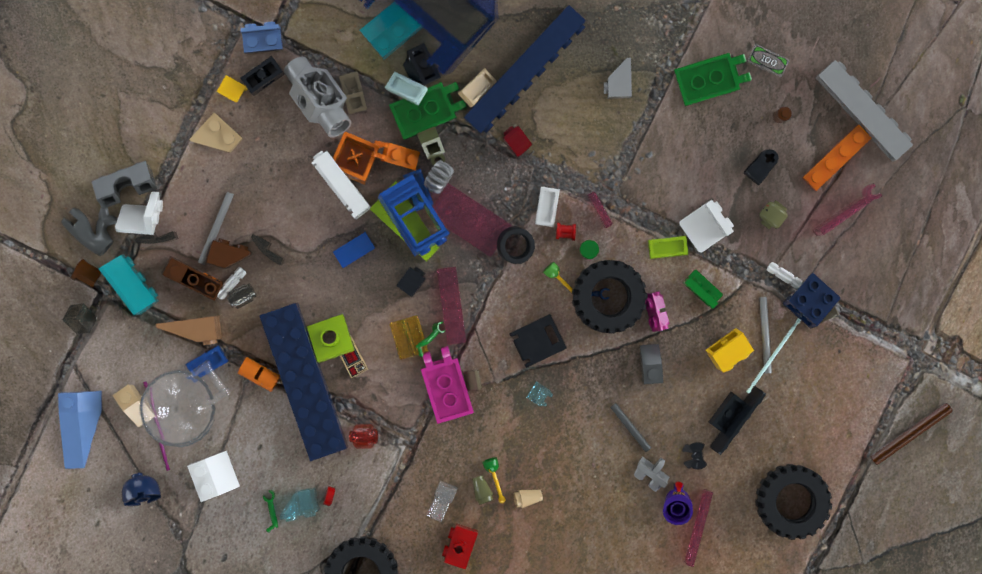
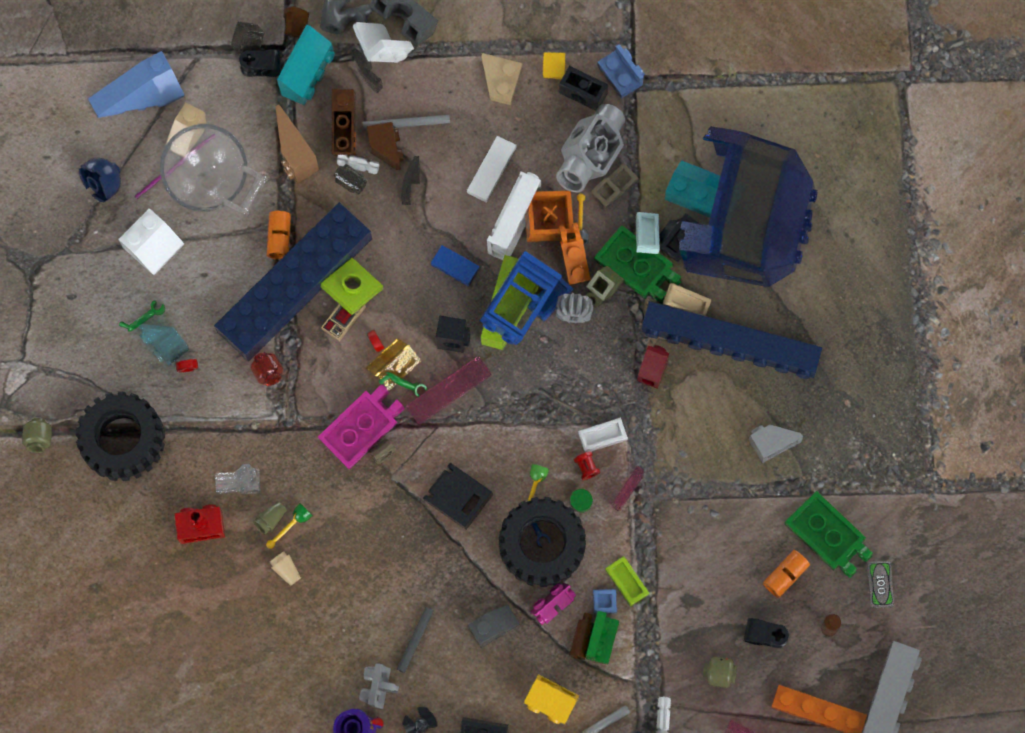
camera: 60 degrees right, 15 degrees down
(108, 316) = (263, 63): none -> black piece
(215, 356) = (275, 185): blue tile -> none
(289, 181) = (491, 169): none -> white tile
(380, 137) = (583, 232): none -> yellow hinge
(384, 341) = (375, 341): none -> red tile
(469, 219) = (546, 364): clear pink tile -> none
(529, 242) = (548, 437): black tyre -> none
(538, 394) = (401, 523): clear light blue tile -> none
(674, 272) = (605, 601): none -> medium blue tile
(693, 303) = (582, 637): none -> reddish brown cylinder
(706, 226) = (670, 608): white bracket -> none
(725, 126) = (786, 574): none -> orange pin

